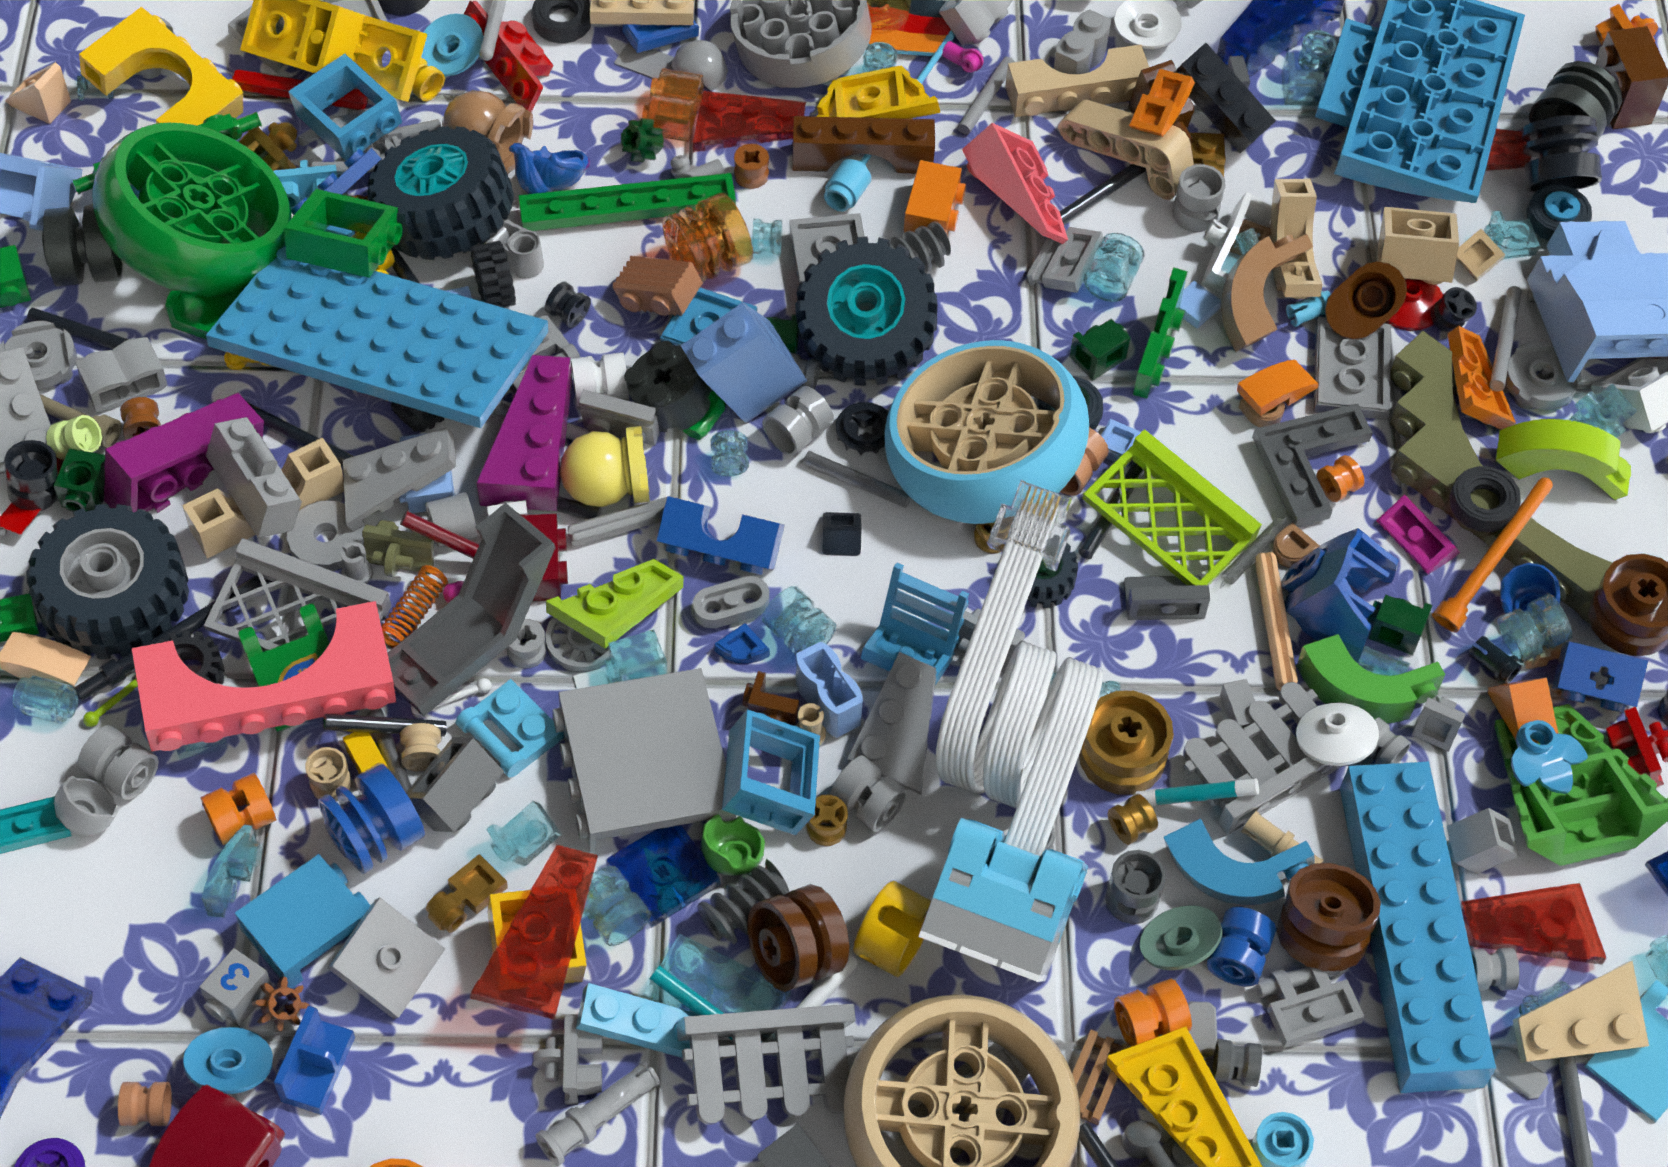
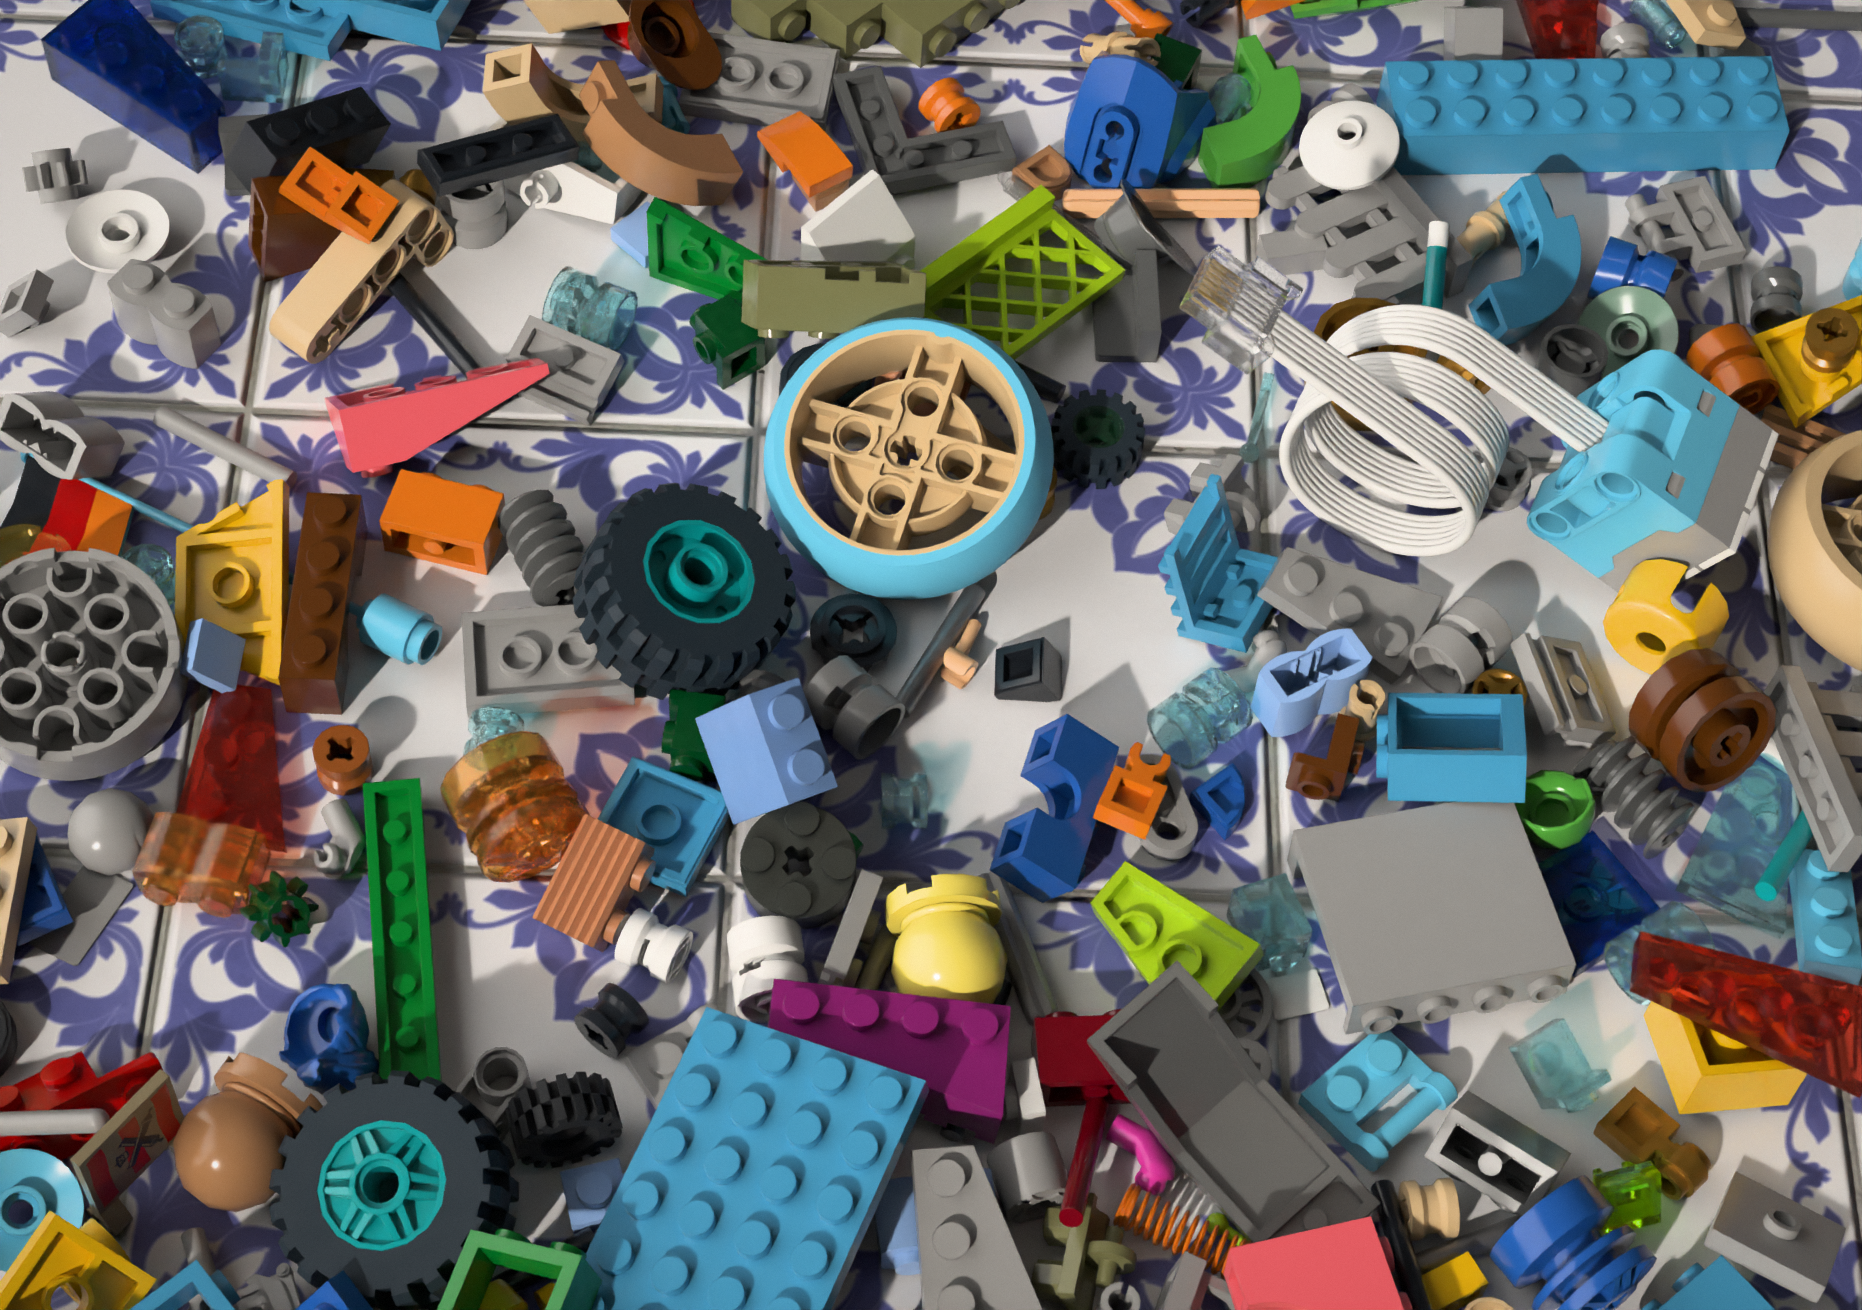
camera: 90 degrees left, 0 degrees up
(424, 870) = (1633, 1193): none -> clear neon green tile
(466, 65) = (126, 1149): none -> dark tan flag
(617, 327) = (653, 945): none -> white wheel
(724, 570) = (1133, 794): none -> orange plate
(811, 87) = (212, 655): none -> light blue tile
(839, 859) = (1563, 688): none -> light grey plate
(844, 486) = (958, 666): none -> light nougat hand
(856, 669) = (1266, 647): none -> light grey arm
(968, 59) = (157, 457): dark pink arm -> none
(1040, 89) = (228, 373): tan arch -> none
(1120, 383) = (827, 295): none -> olive wedge
(1175, 1081) = (1837, 350): none -> pearl gold wheel
(1185, 411) = (860, 227): none -> white slope
(1221, 192) = (497, 155): none -> black tile
(1234, 603) = (1131, 227): none -> dark grey piece
(1328, 917) = (1600, 178): reddish brown wheel -> none
(1411, 582) = (1121, 44): none -> tan pin
(1417, 535) = (1025, 50): dark pink slope -> none
(1439, 723) = (1309, 56): light grey tile -> none

